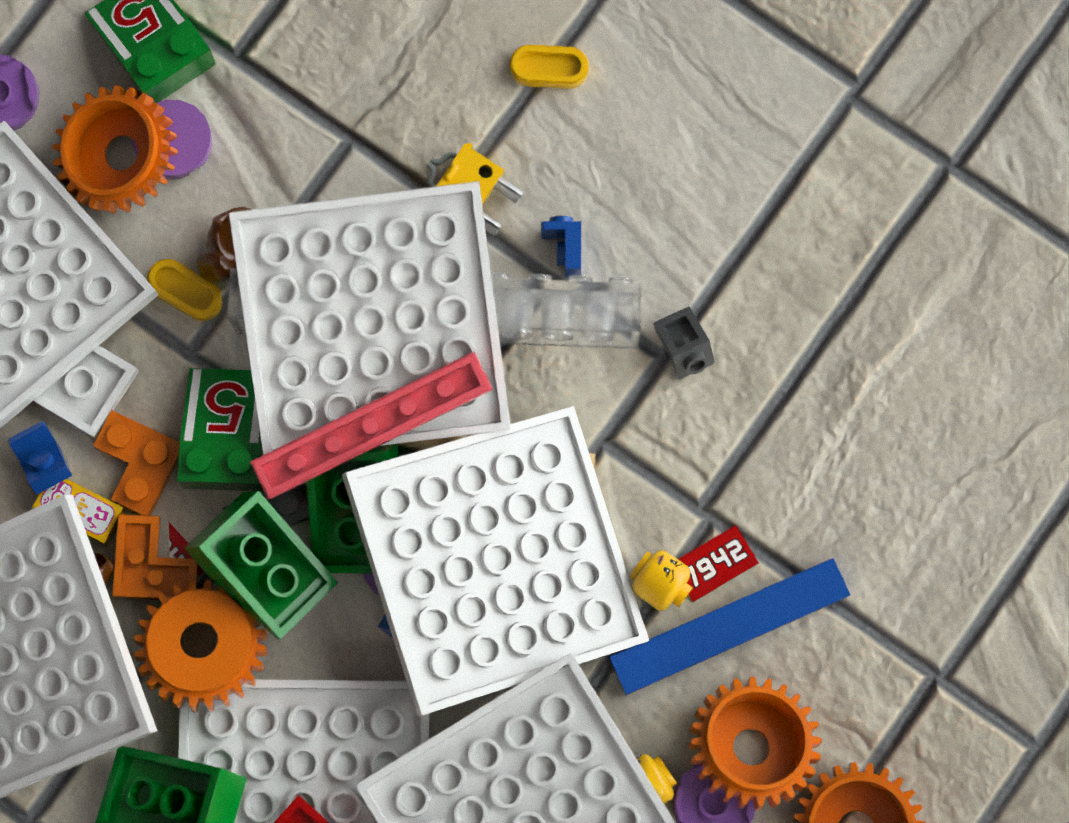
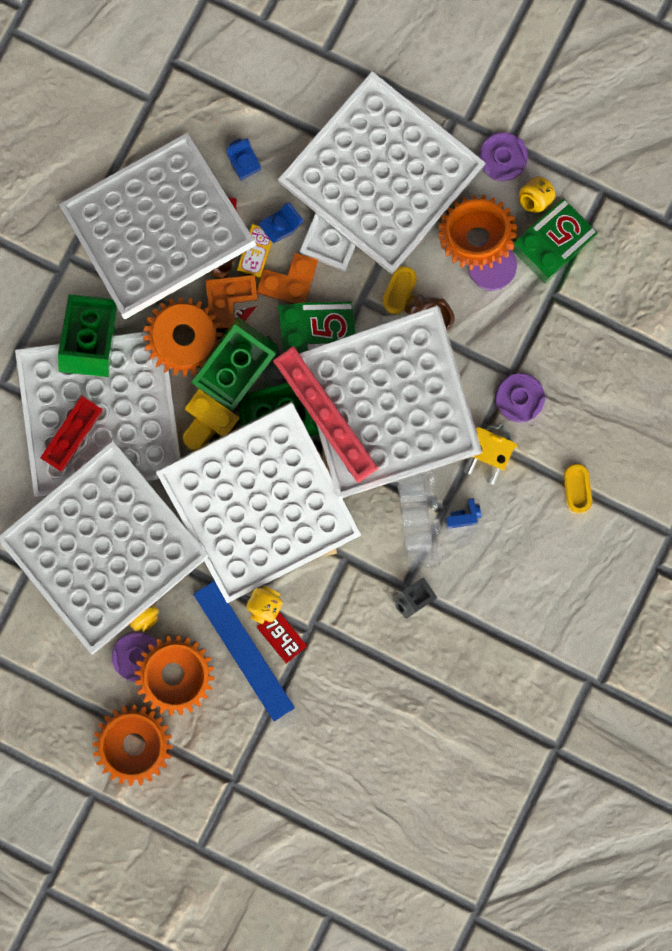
camera: 80 degrees right, 5 degrees up
(71, 49) = (536, 194): none -> yellow head
(345, 624) = (208, 420): none -> yellow brick
(391, 130) = (520, 397): none -> medium lavender tile

